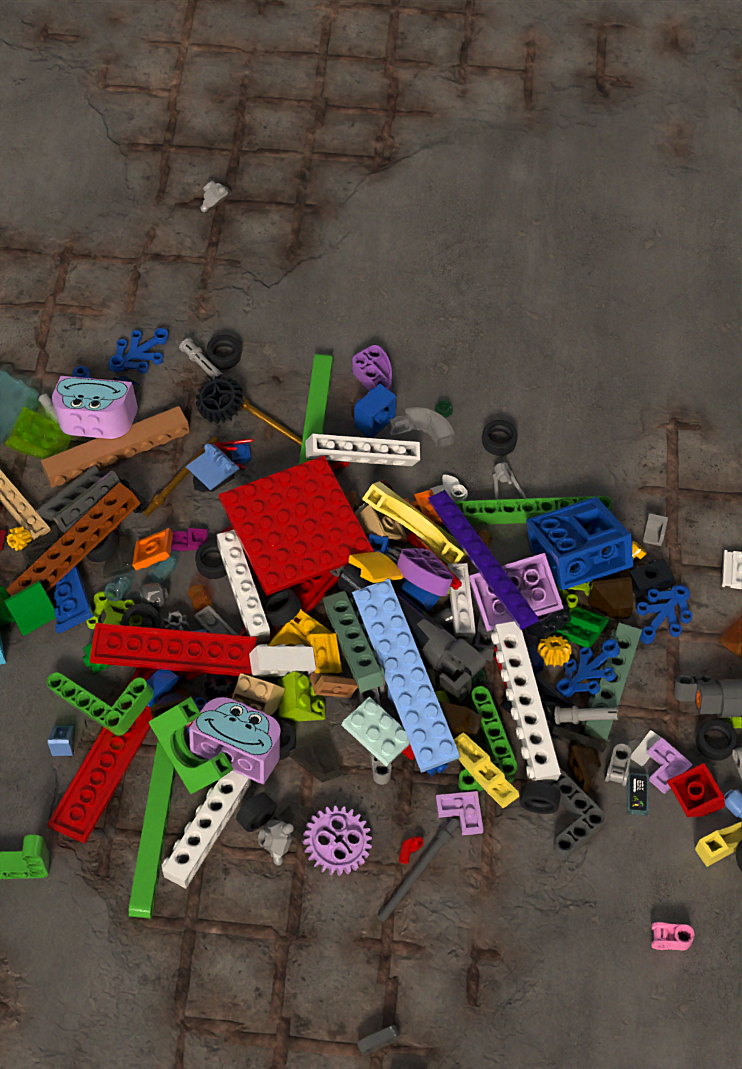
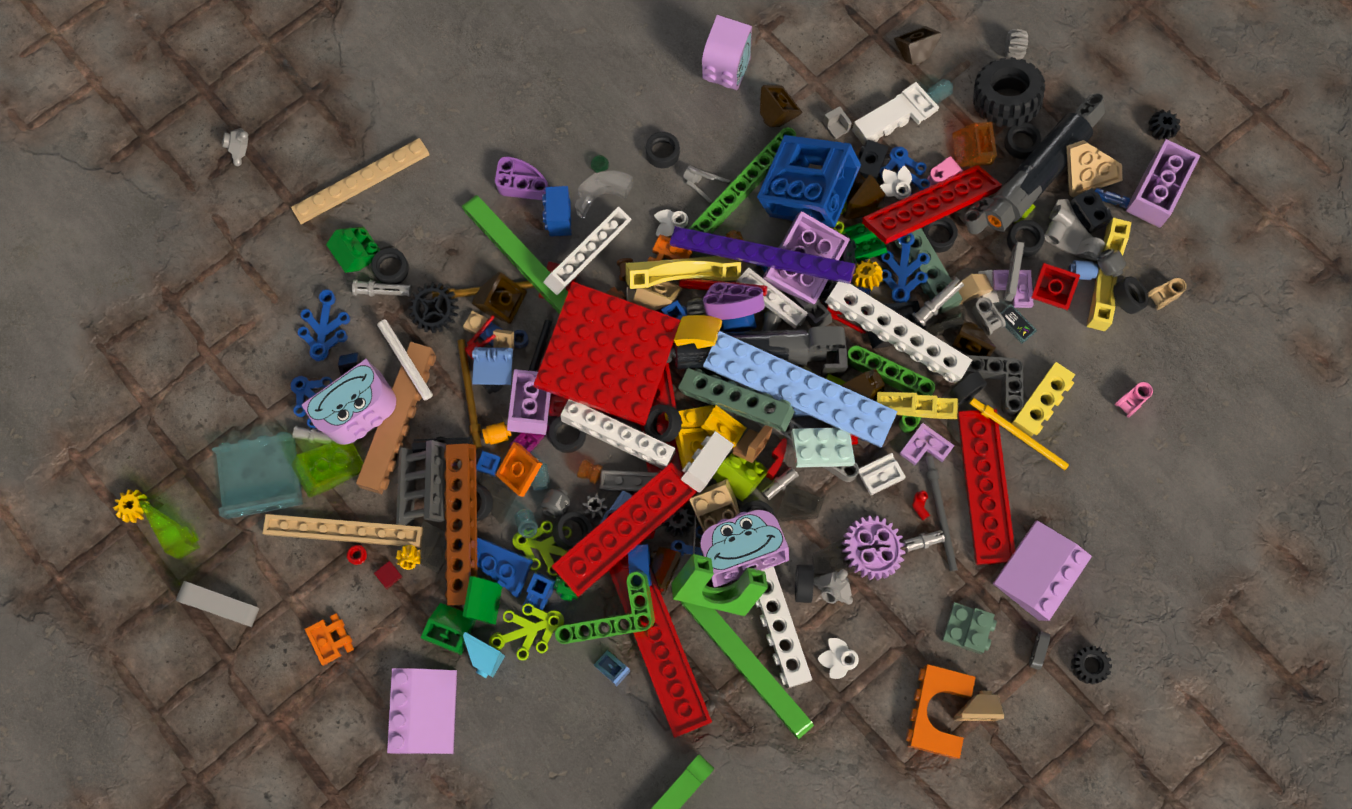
camera: 45 degrees left, 15 degrees up
(39, 660) = (529, 629): none -> lime plant
(73, 640) = (539, 591): none -> blue brick
(139, 529) = (488, 463): none -> blue plate
(160, 412) = (405, 360): none -> white axle
(167, 515) = (496, 433): none -> light orange brick
(203, 514) = (527, 405): none -> lavender brick
(212, 318) = (352, 248): none -> green slope
(221, 890) = (835, 658): none -> white plate
(237, 433) = (474, 322): none -> tan plate
(241, 459) = (503, 339): none -> tan plate
(250, 469) = (526, 340): none -> dark blue bush
(268, 284) = (360, 181): none -> tan plate
(270, 979) = (922, 733): none -> orange arch
(272, 433) = (500, 298): none -> dark brown slope
(282, 1031) = (981, 708): none -> tan slope
(321, 732) = (779, 483): none -> light grey pin
(335, 717) = (778, 455): none -> red slope
(343, 970) = (969, 628): none -> sand green plate
(381, 874) = (924, 540): none -> light grey pin
(404, 797) = (881, 474): none -> white plate
(446, 982) = (1042, 571): none -> lavender slope
(474, 884) = (986, 488): none -> red plate
(537, 829) = (988, 411): none -> yellow bar
(614, 407) = (727, 52): none -> lavender brick
(621, 479) = (777, 106): none -> dark brown slope
(622, 855) = (1056, 375): none -> light yellow brick
(632, 734) = (974, 286): none -> tan slope
(652, 606) = (896, 181): none -> white plate
(654, 662) = (950, 226): none -> black tyre
(659, 642) = (931, 204): none -> red plate
(674, 749) = (1014, 271): none -> light grey tile
(693, 557) = (881, 121): none -> white brick
(702, 635) = (944, 171): none -> bright pink piece

